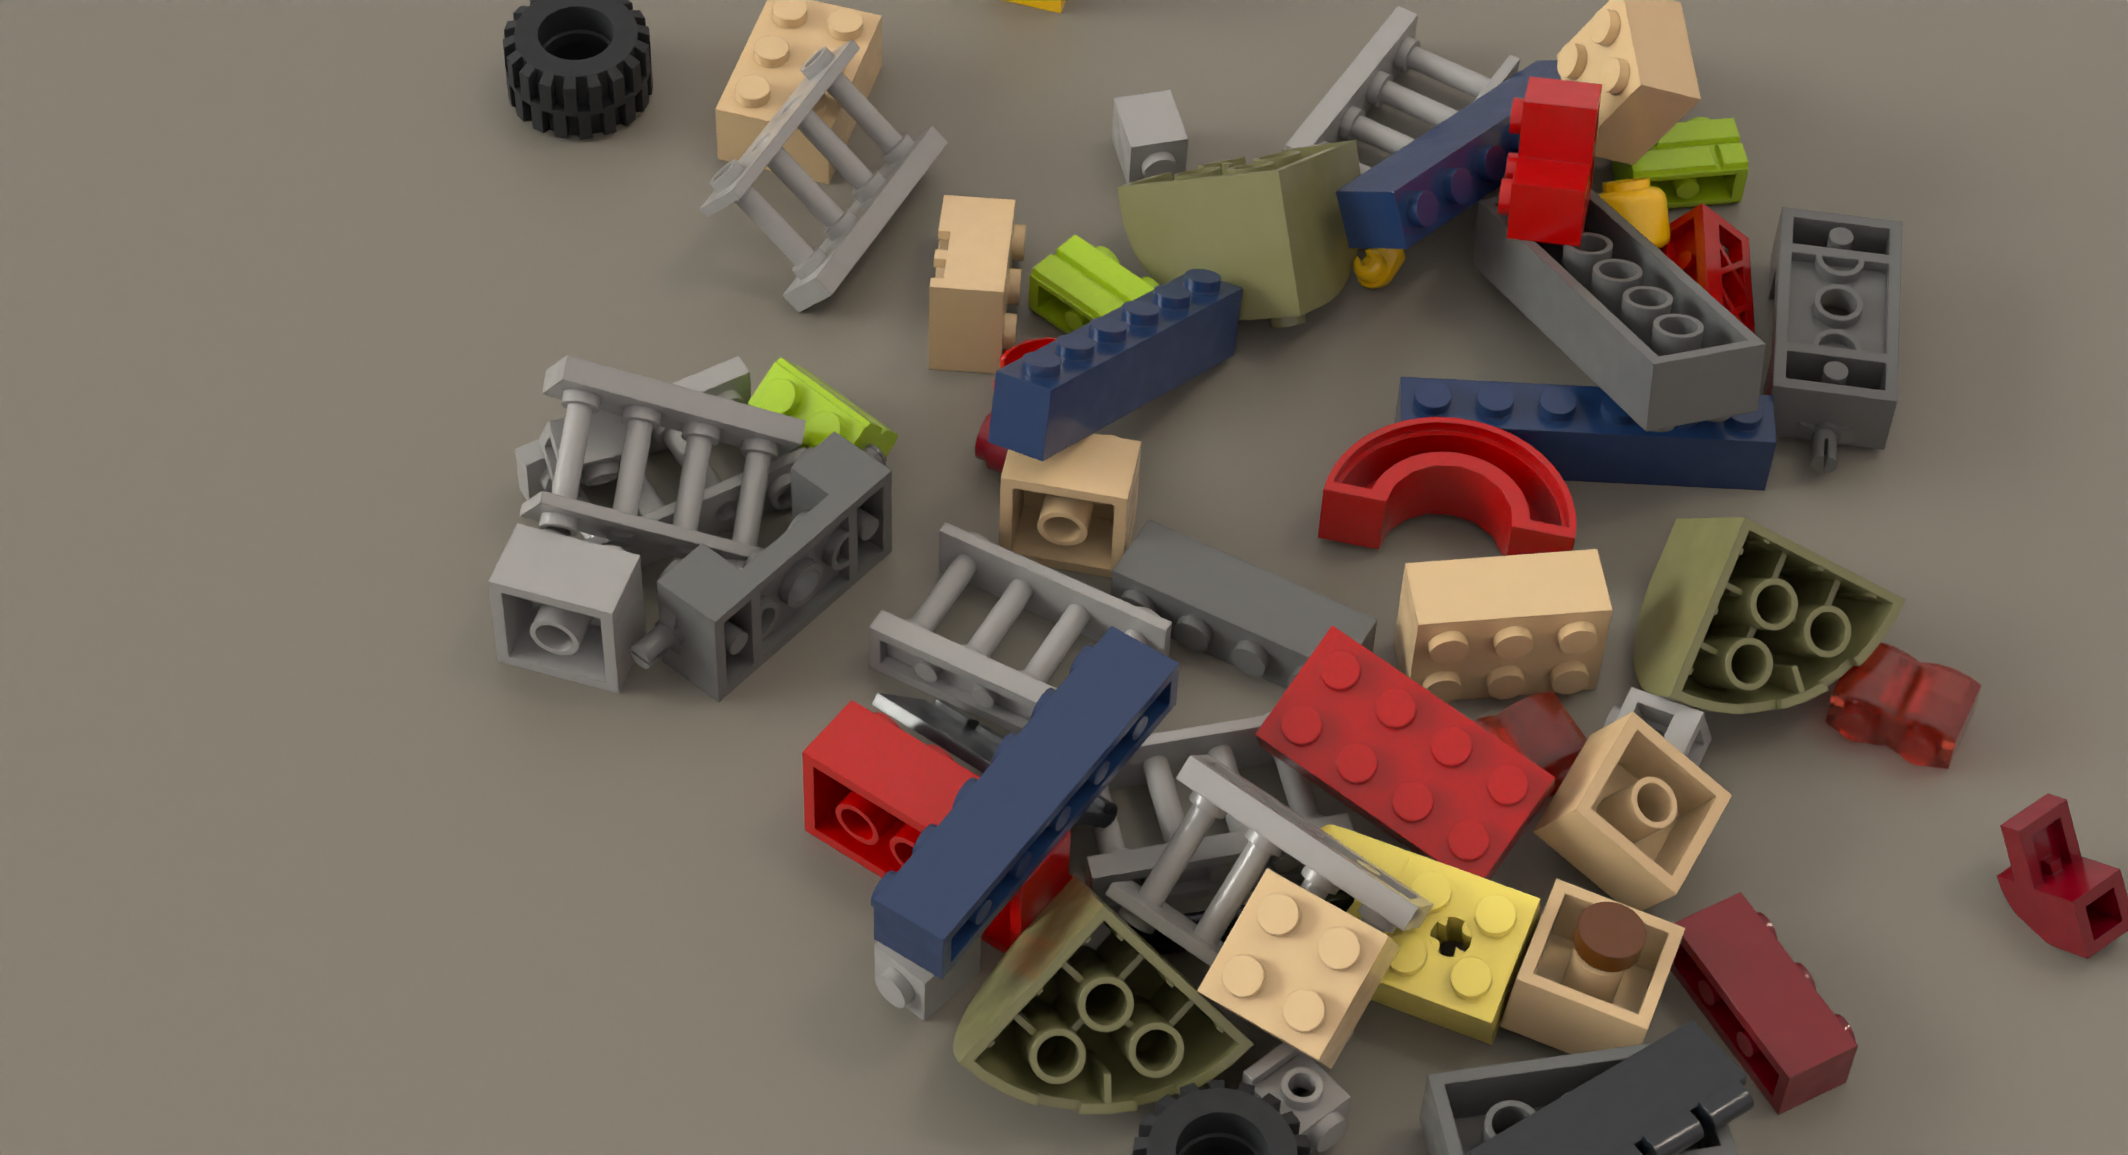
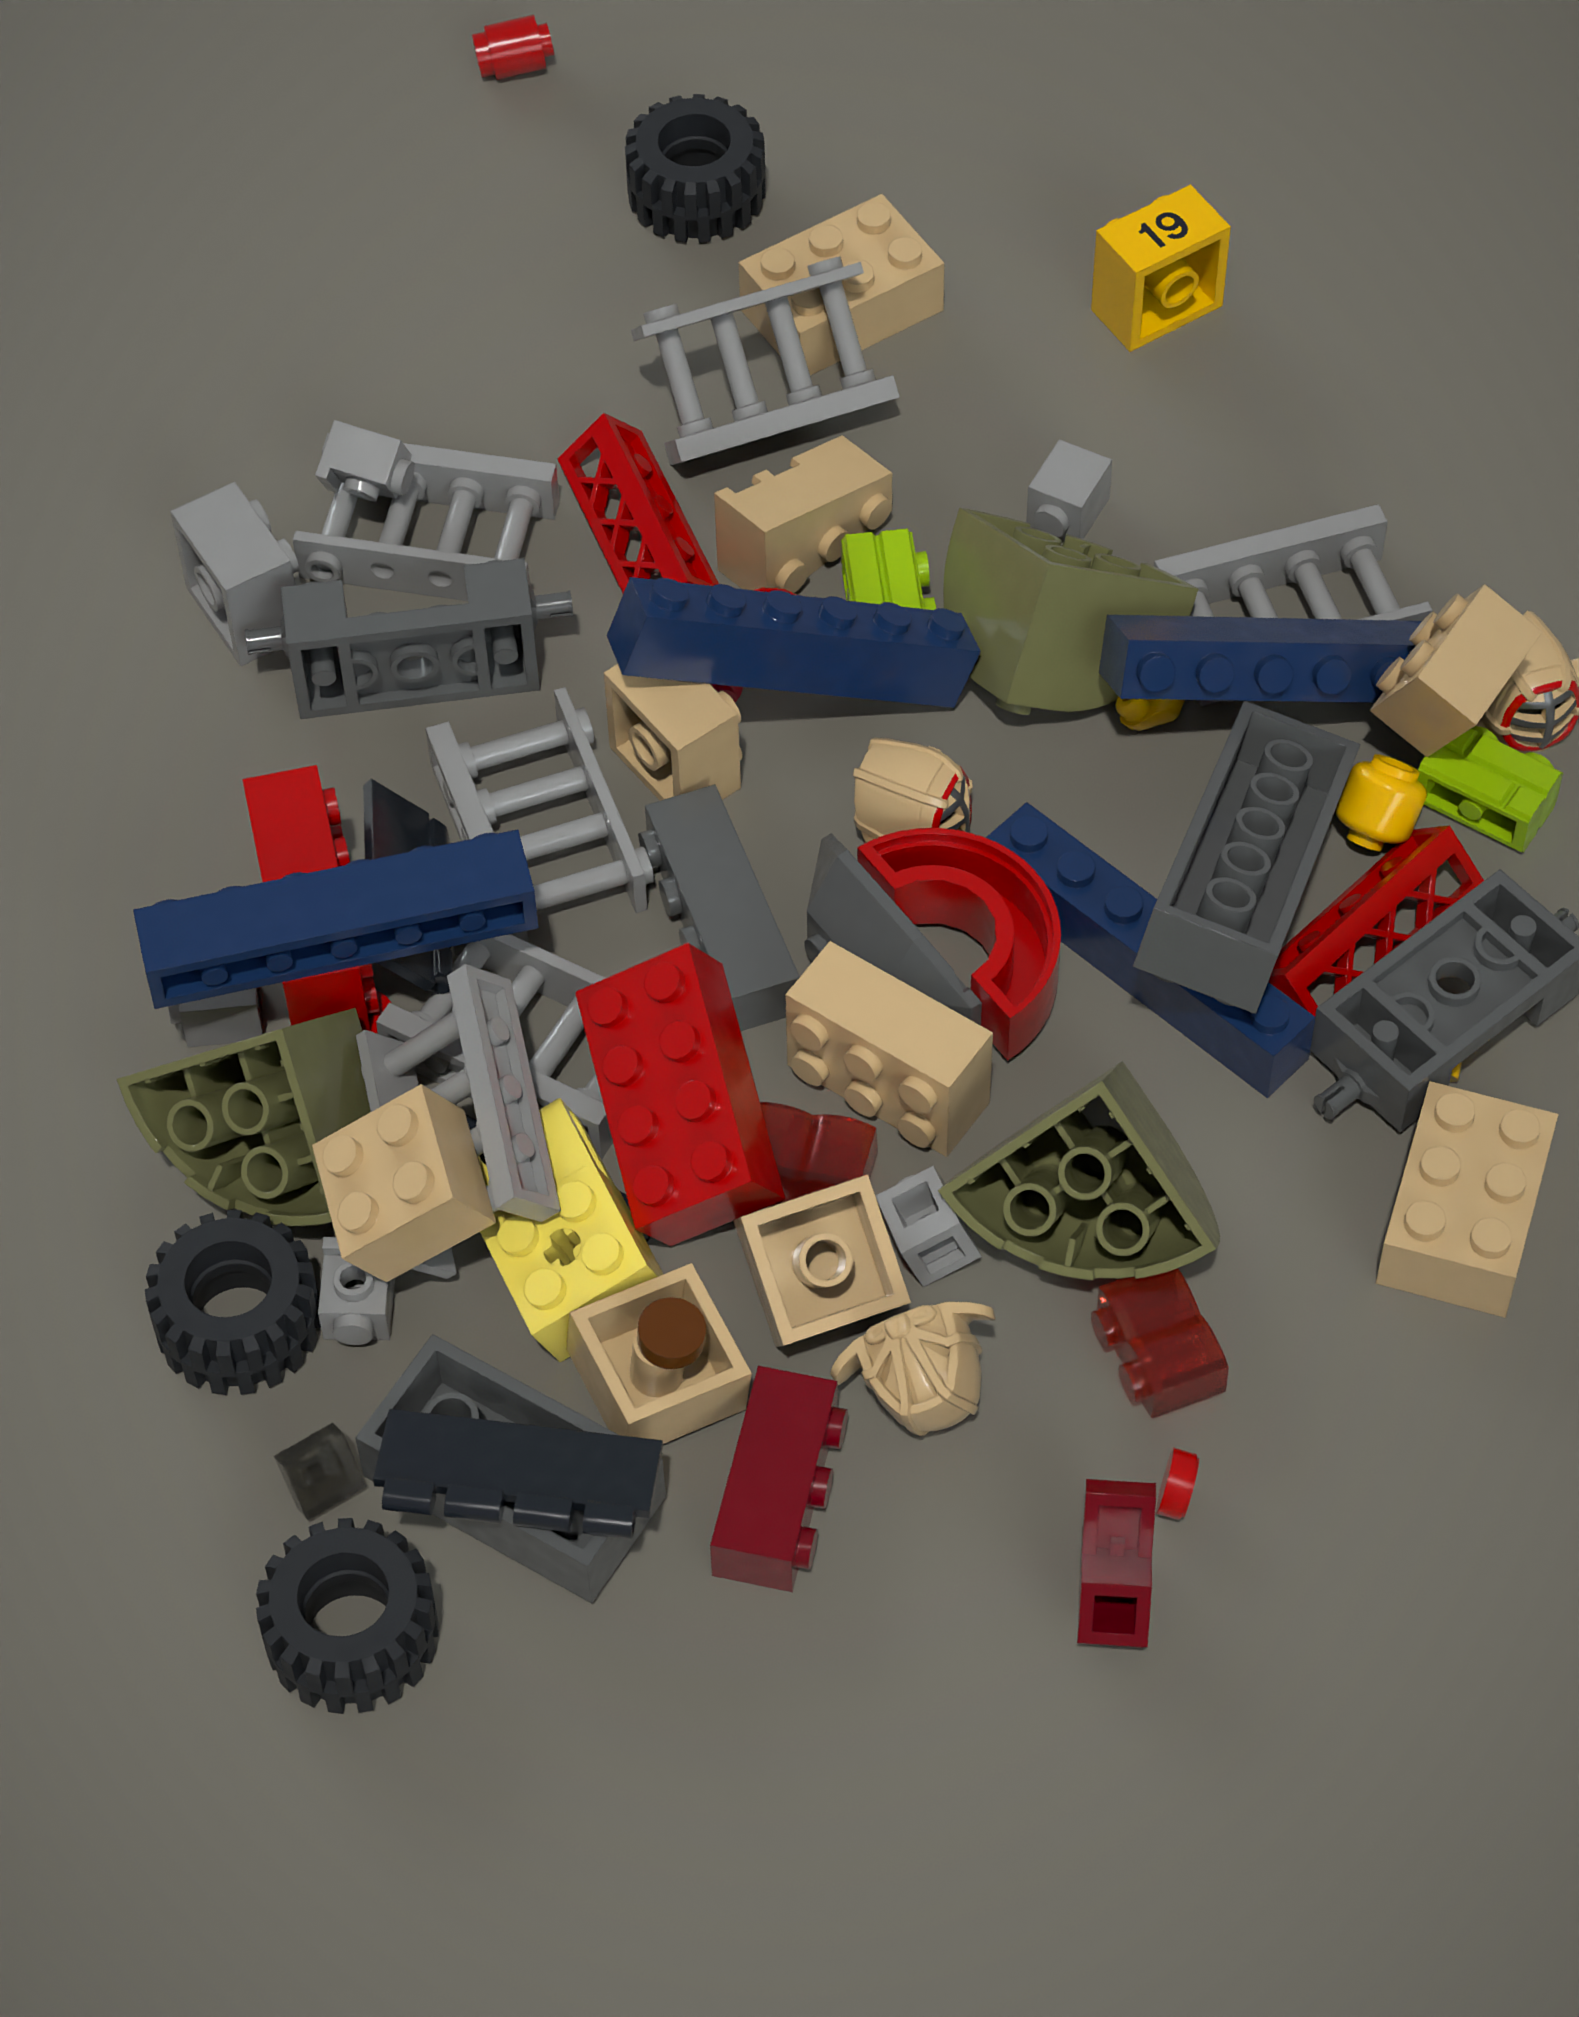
camera: 45 degrees right, 5 degrees up
(300, 57) = (512, 47): none -> red brick
(644, 407) = (398, 453): light grey fence -> none
(805, 396) = (571, 551): lime brick -> none
(846, 349) = (644, 498): none -> red fence
(1297, 438) = (909, 788): none -> tan piece
(1358, 544) = (864, 920): none -> dark grey wedge
(1552, 174) = (1310, 706): red brick -> none
(1783, 837) = (921, 1364): none -> tan piece
(1992, 460) = (1466, 1199): none -> tan brick
(2020, 788) = (1177, 1484): none -> red tile

